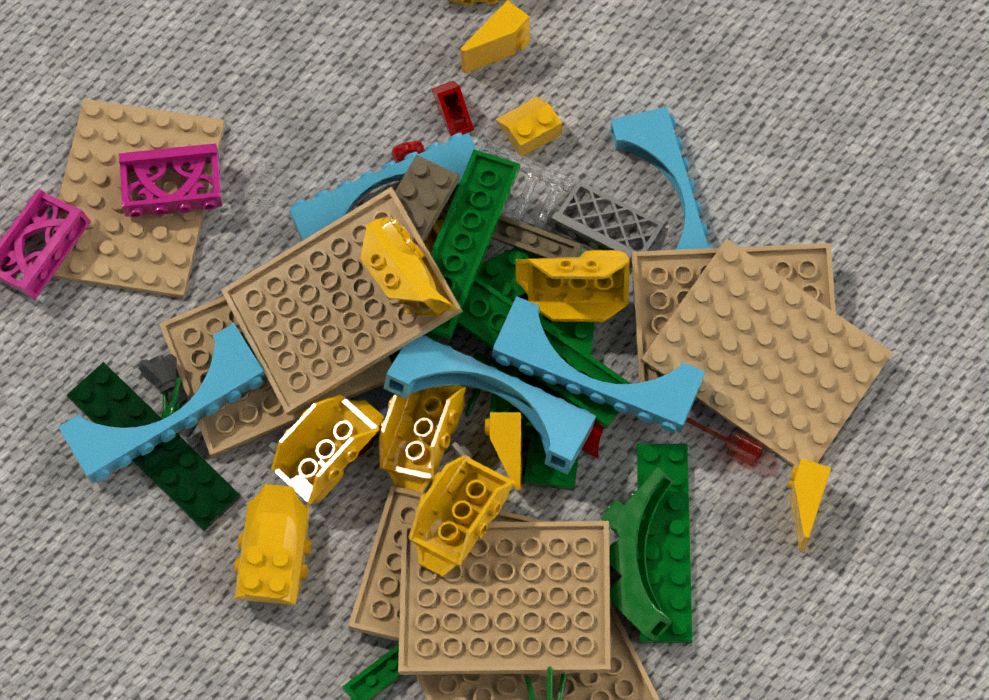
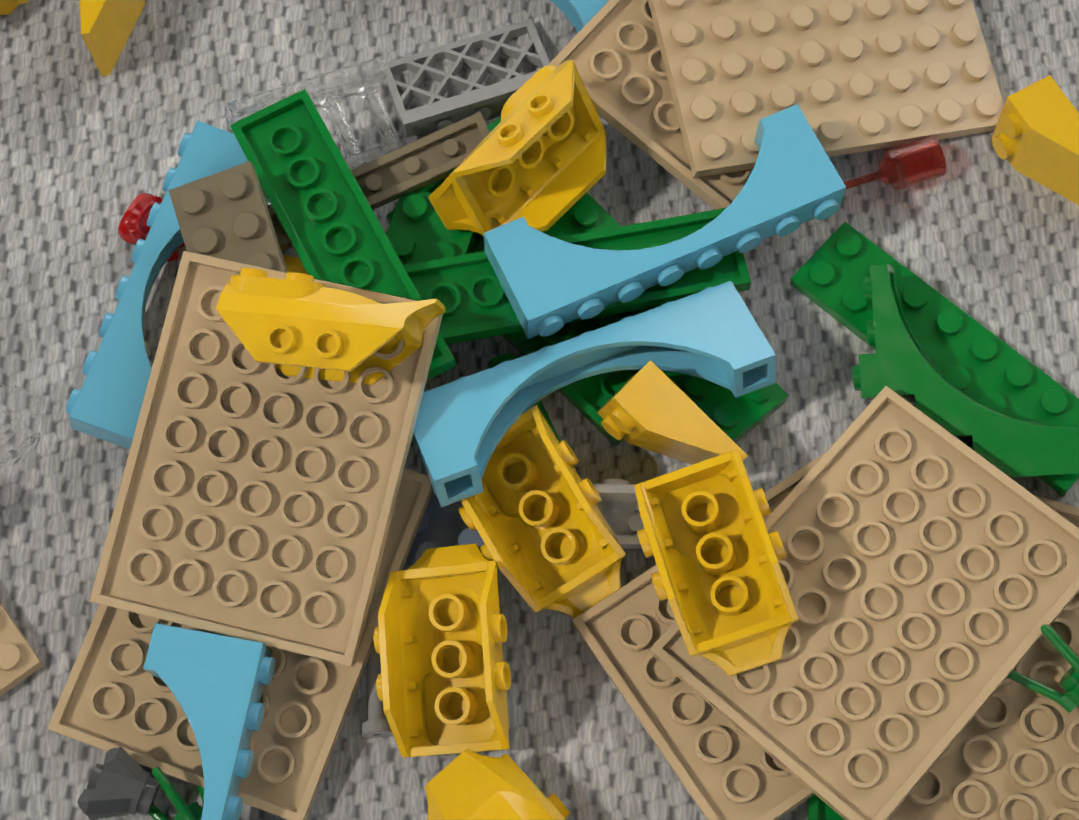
camera: 45 degrees left, 0 degrees up
(453, 108) = (140, 119): red arch -> none
(530, 126) = (255, 53): yellow slope -> none

